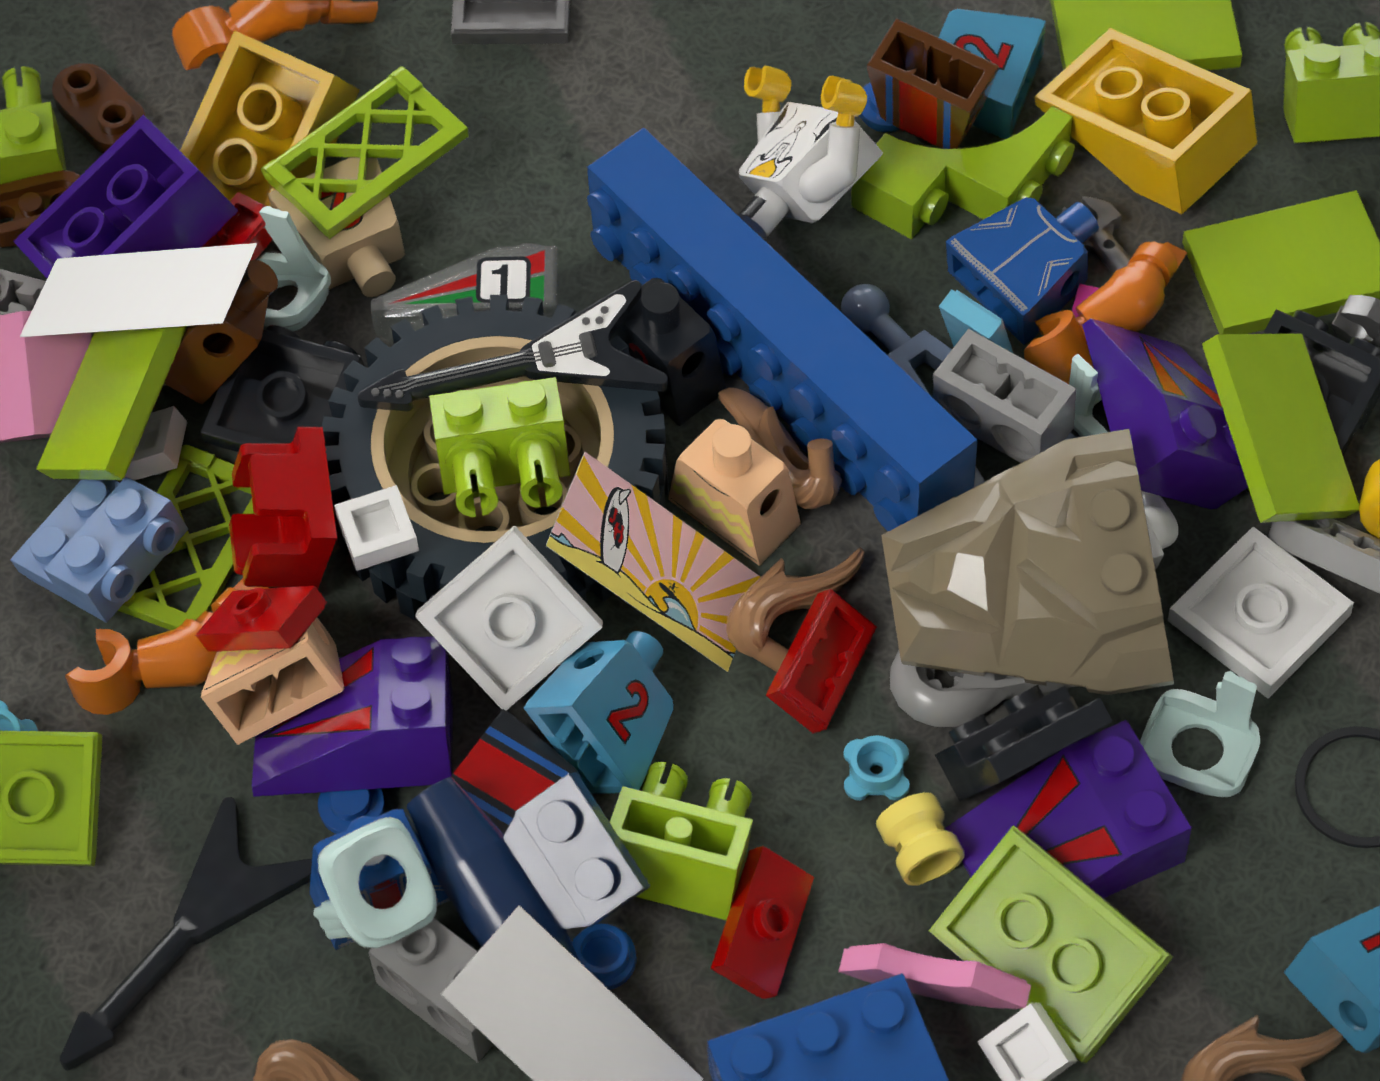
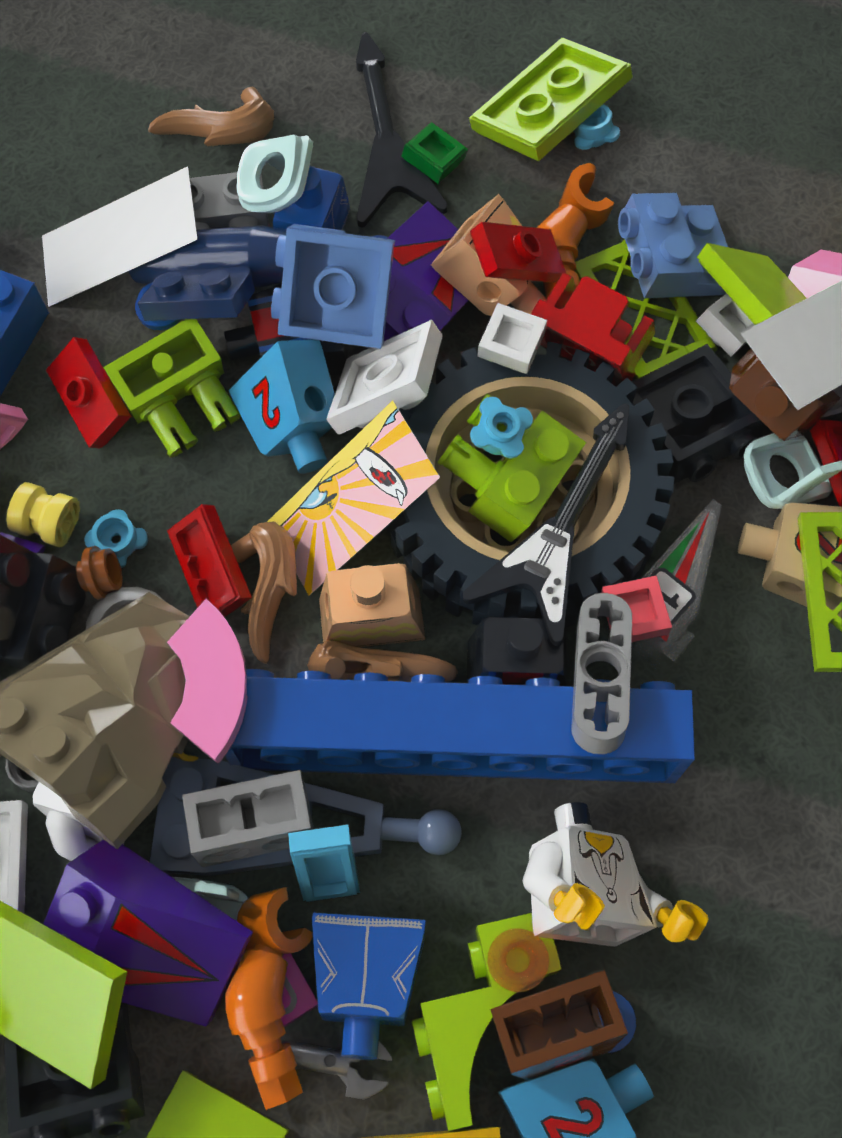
camera: 130 degrees right, 10 degrees up
(169, 858) = (434, 152): none -> green tile
(464, 718) = (333, 285): none -> medium blue plate
(491, 442) = (492, 440): none -> medium azure plate
(545, 272) = (647, 607): none -> coral plate
(634, 251) = (588, 690): none -> light grey beam
(915, 139) = (524, 941): none -> clear orange plate
(924, 729) = (99, 572): none -> dark orange plate
(932, 475) = (214, 682): none -> bright pink tile

